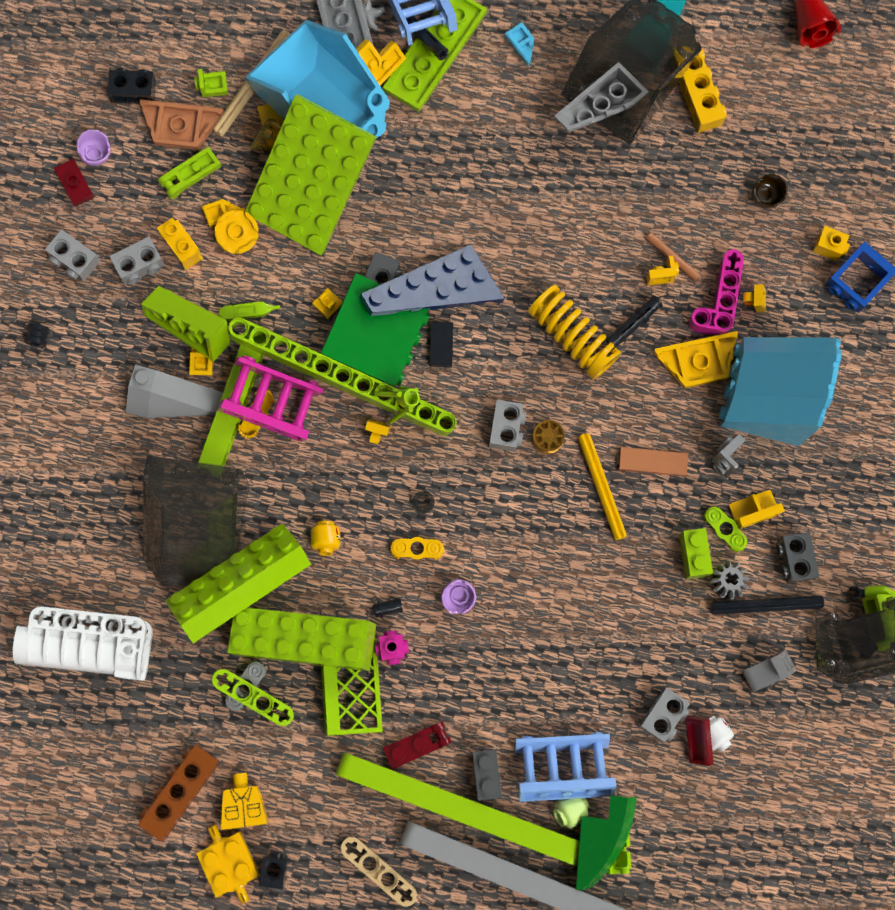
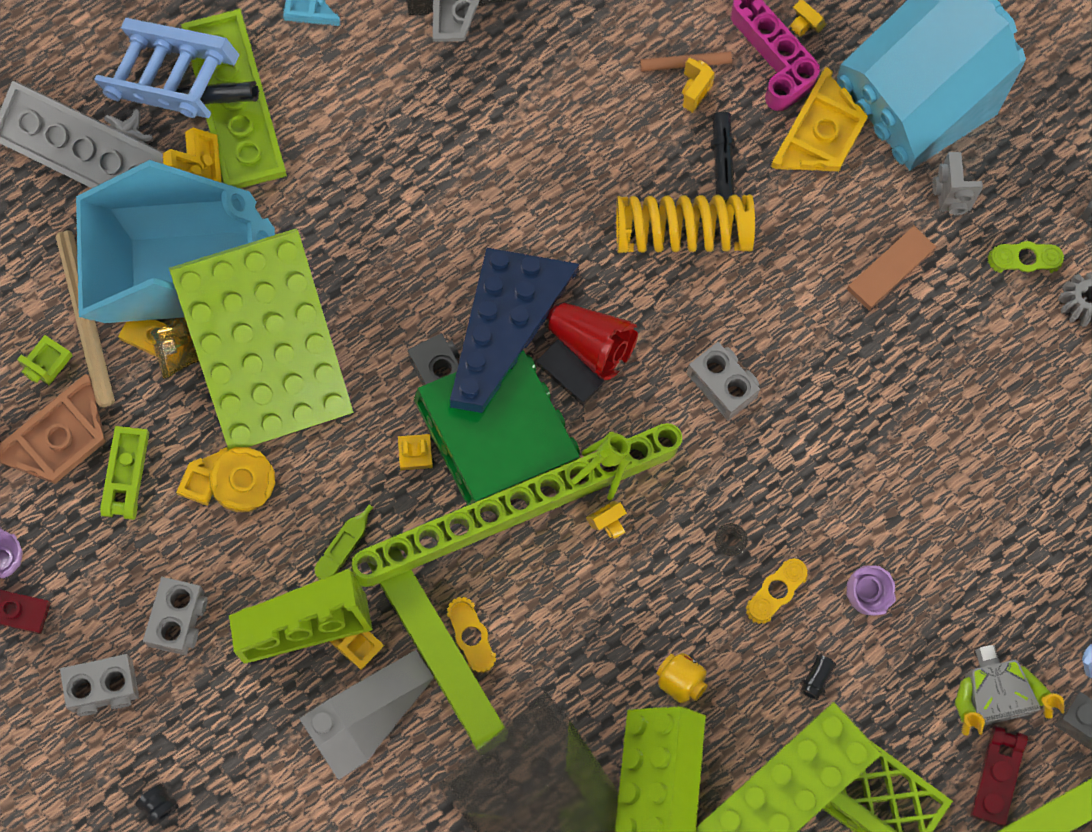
camera: 45 degrees left, 5 degrees down
(180, 243) = (198, 549): yellow window -> none
(254, 413) = (475, 633): dark pink fence -> none
(392, 657) = (865, 720): dark pink brick -> none
(461, 709) = (1001, 693): none -> torso
(468, 340) = (594, 337): none -> red cone
(548, 437) = (772, 349): pearl gold wheel -> none
(602, 486) = (874, 341): yellow axle -> none
(696, 553) = (1031, 308): lime brick -> none
(755, 509) = (1031, 211): yellow panel -> none

